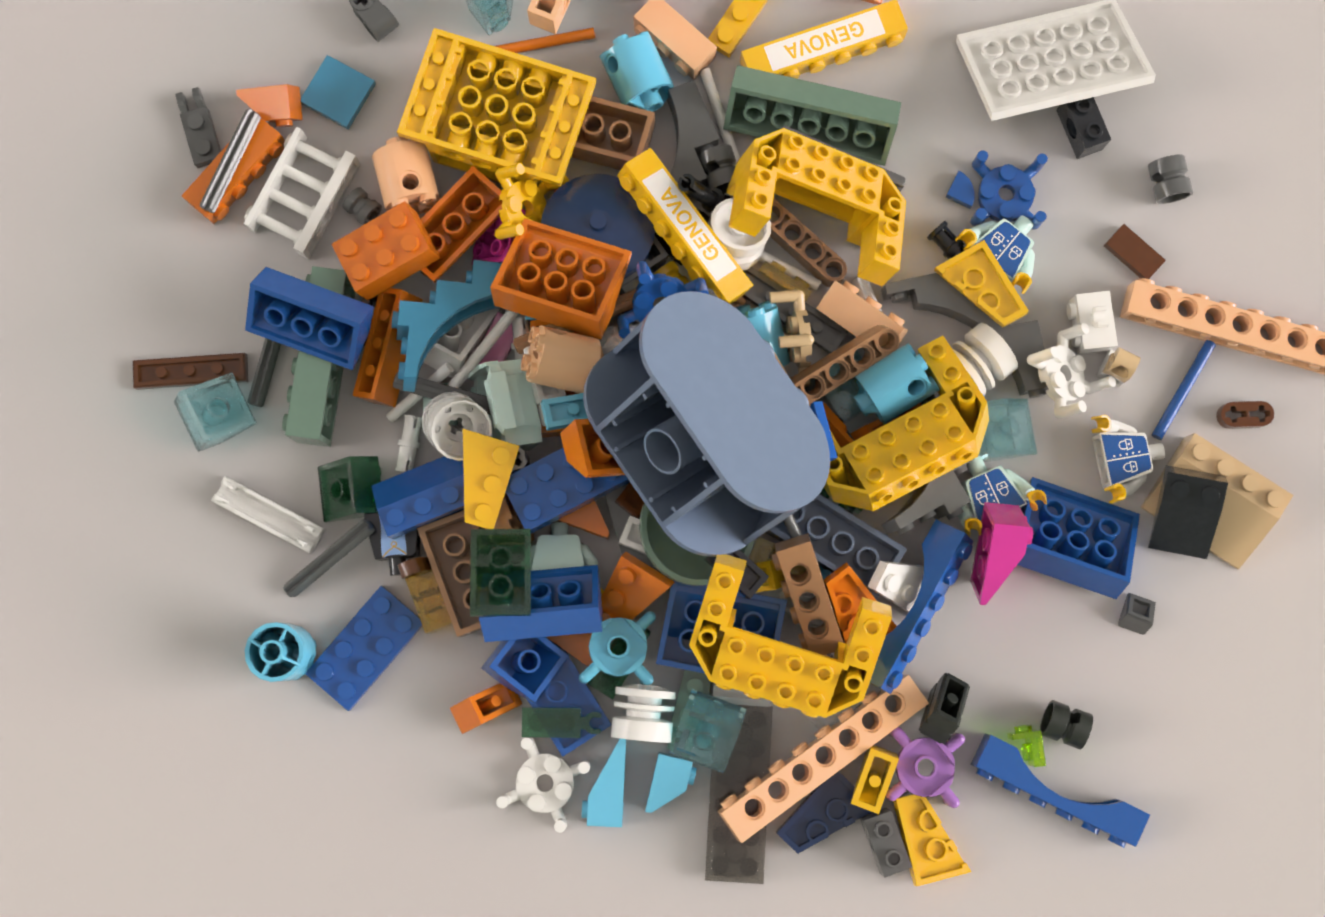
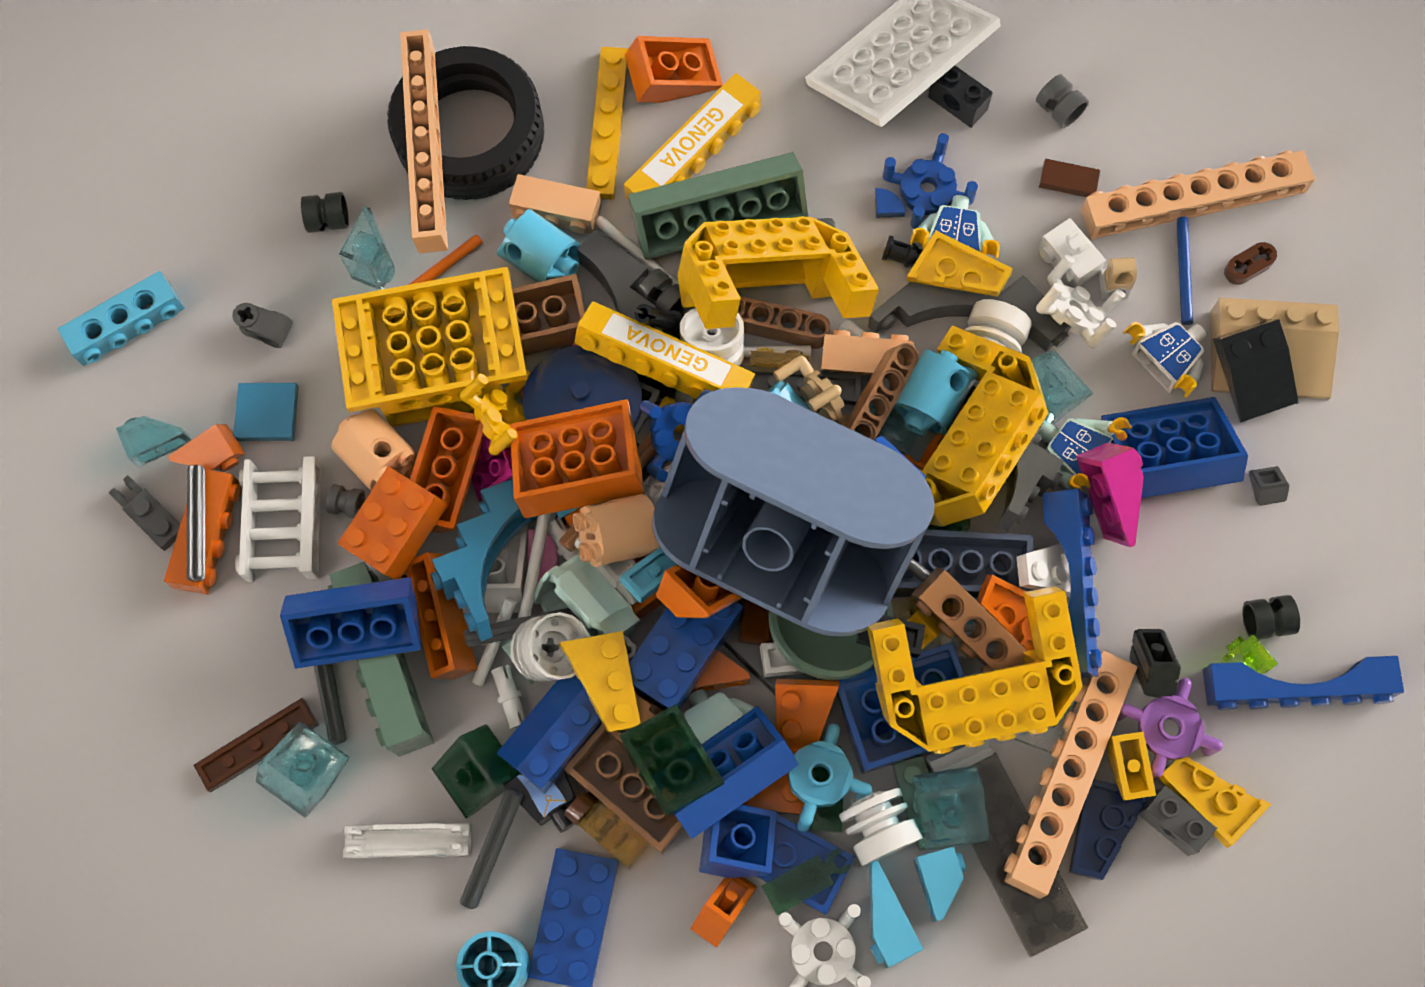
camera: 25 degrees left, 10 degrees down
(229, 66) = (150, 439): none -> clear light blue slope

